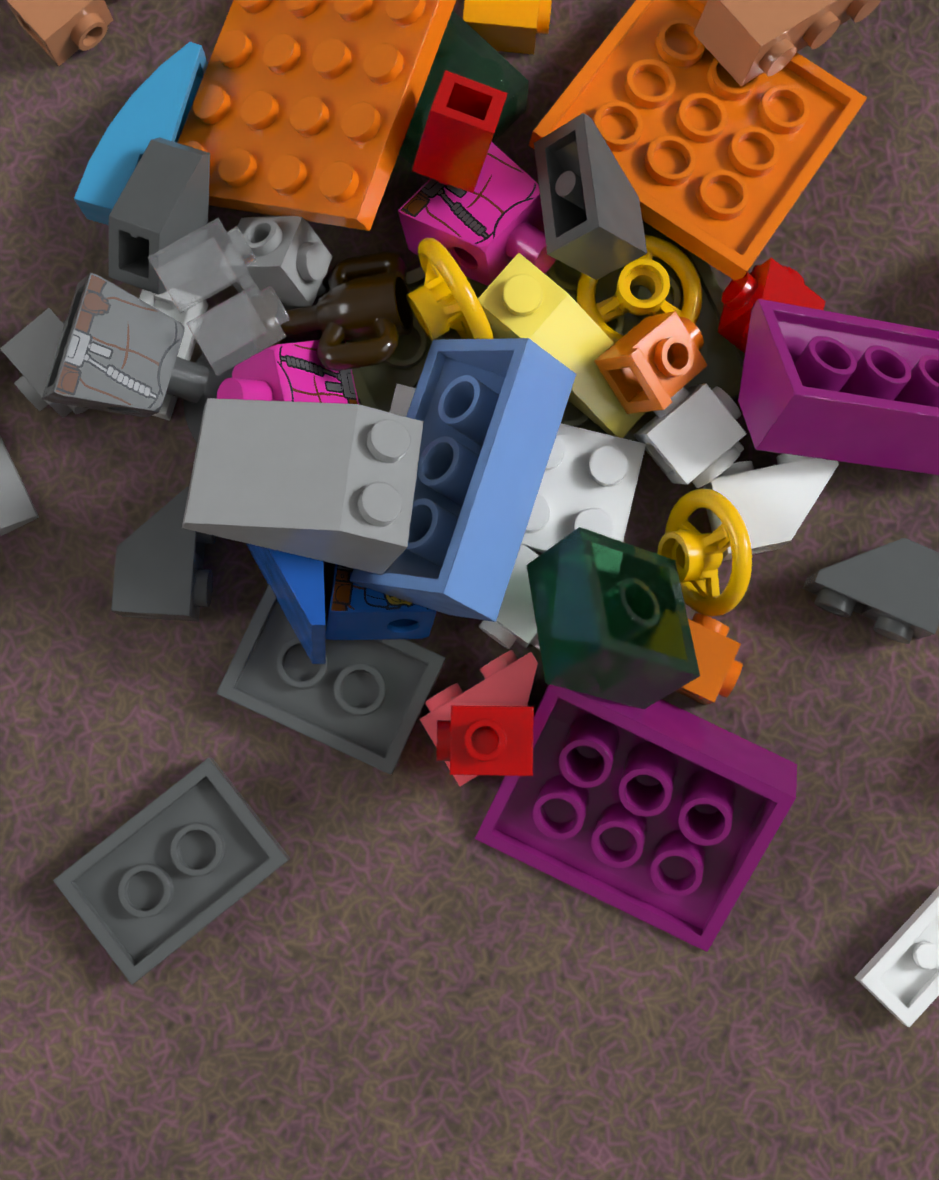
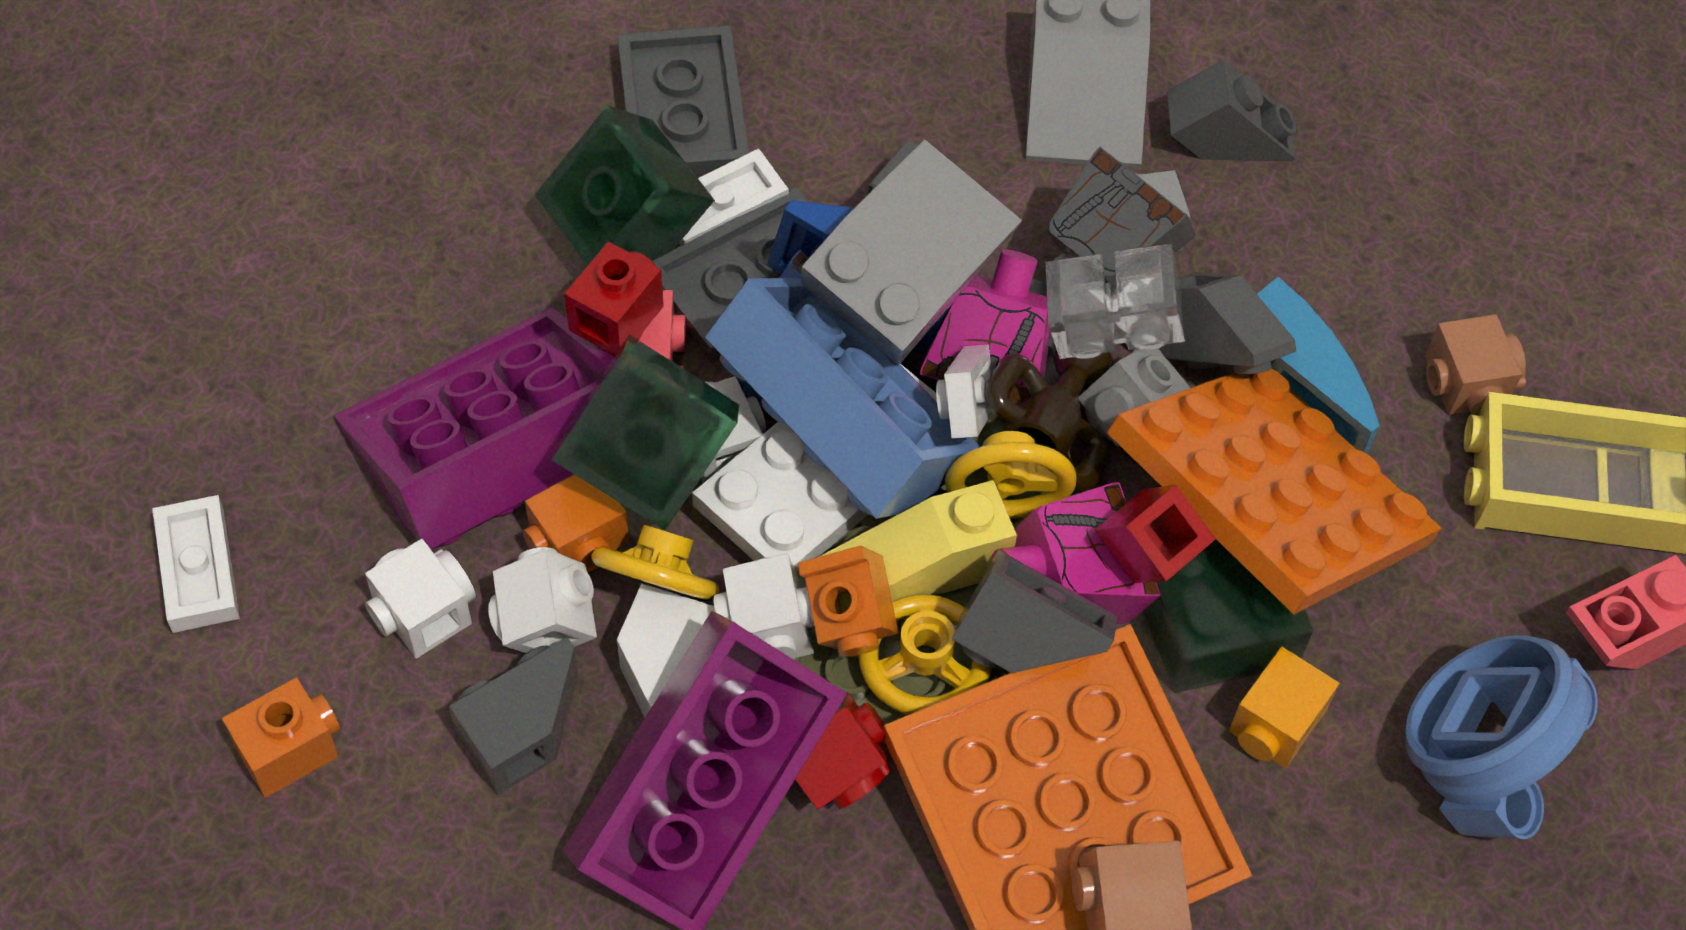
camera: 120 degrees right, 25 degrees down
(269, 754) = (736, 191): none -> white plate
(345, 829) = (624, 189): none -> clear green brick
(412, 369) = (963, 392): none -> white plate
(789, 628) = (542, 601): none -> white brick
(838, 741) = (419, 596): none -> white brick

